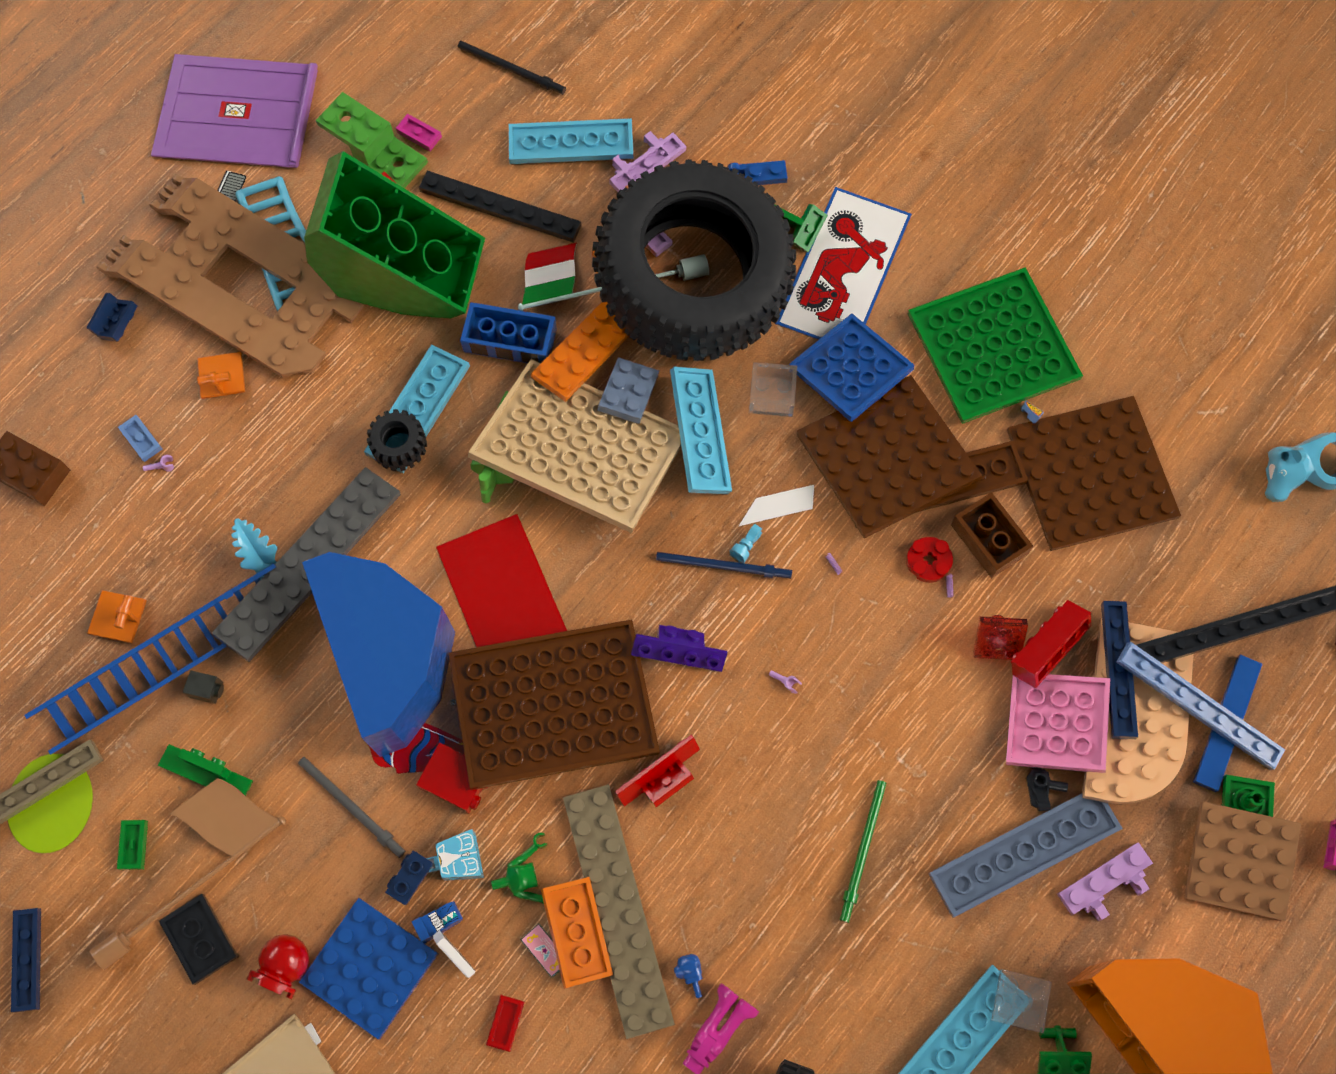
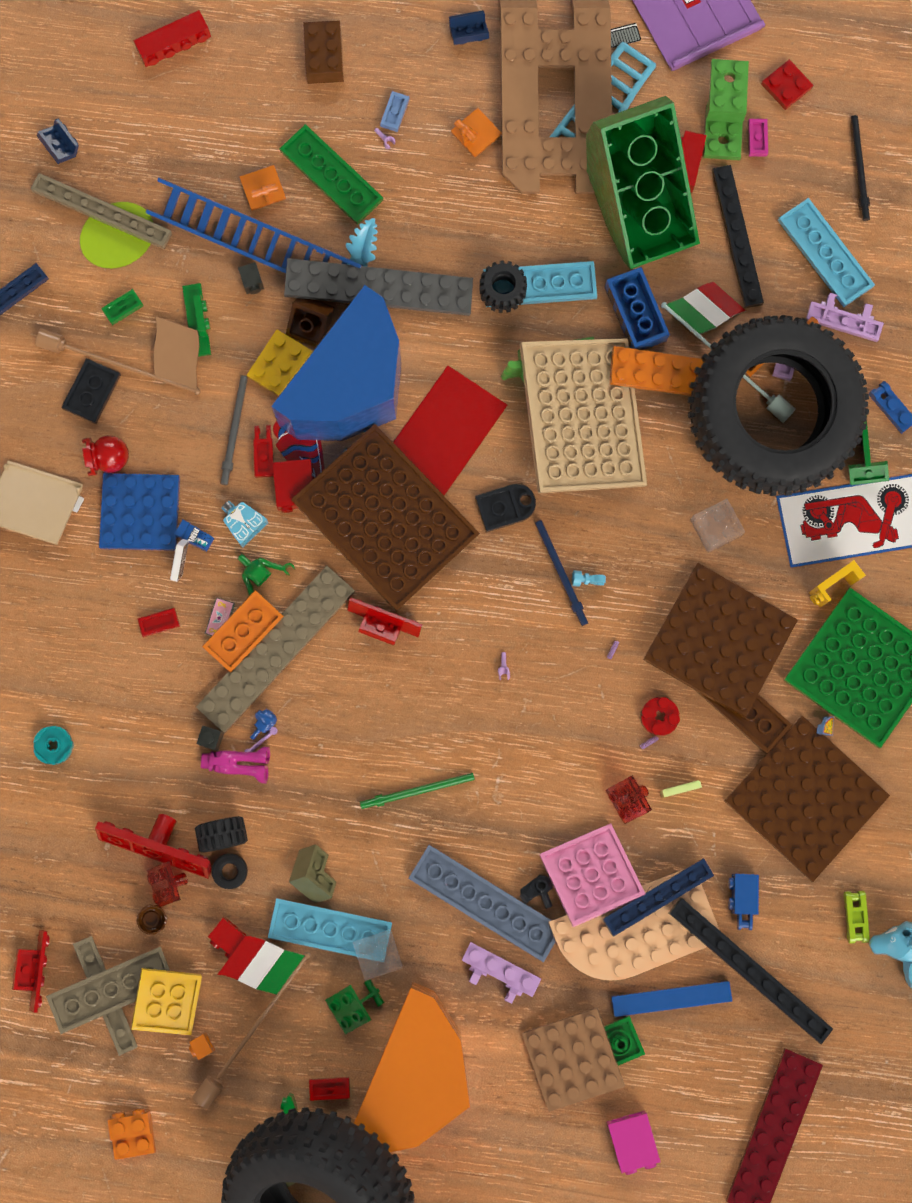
camera: 55 degrees right, 10 degrees up
(155, 539) = (331, 174): none -> green plate
(292, 655) = (309, 321): none -> reddish brown slope
(318, 712) = (279, 362): none -> yellow plate
(386, 80) = (787, 84): none -> red plate
(398, 790) = (263, 453): none -> red hinge
(409, 877) = (210, 498): dark blue bracket -> none
(619, 580) = (503, 506): none -> black tile
(628, 390) = (649, 423): sand blue plate -> none
(672, 1043) = (210, 738): none -> pearl dark grey brick
(679, 647) = (480, 579): dark purple bracket -> none
(700, 431) = (652, 493): medium azure plate -> none
(705, 967) = (273, 731): none -> lavender hinge
(780, 505) = (633, 585): white sticker -> none
(852, 367) = (773, 572): blue plate -> none
(889, 1023) = (309, 874): none -> olive panel
(895, 303) = (851, 573): none -> yellow panel
(991, 535) = (705, 750): reddish brown brick -> none
(1016, 583) = (680, 788): none -> yellowish green tile
(1051, 643) = (648, 838): red brick -> none
(1163, 589) = (744, 898): none -> blue brick
(1200, 706) = (667, 970): medium blue tile -> none
(1238, 496) = (856, 917): none -> lime plate

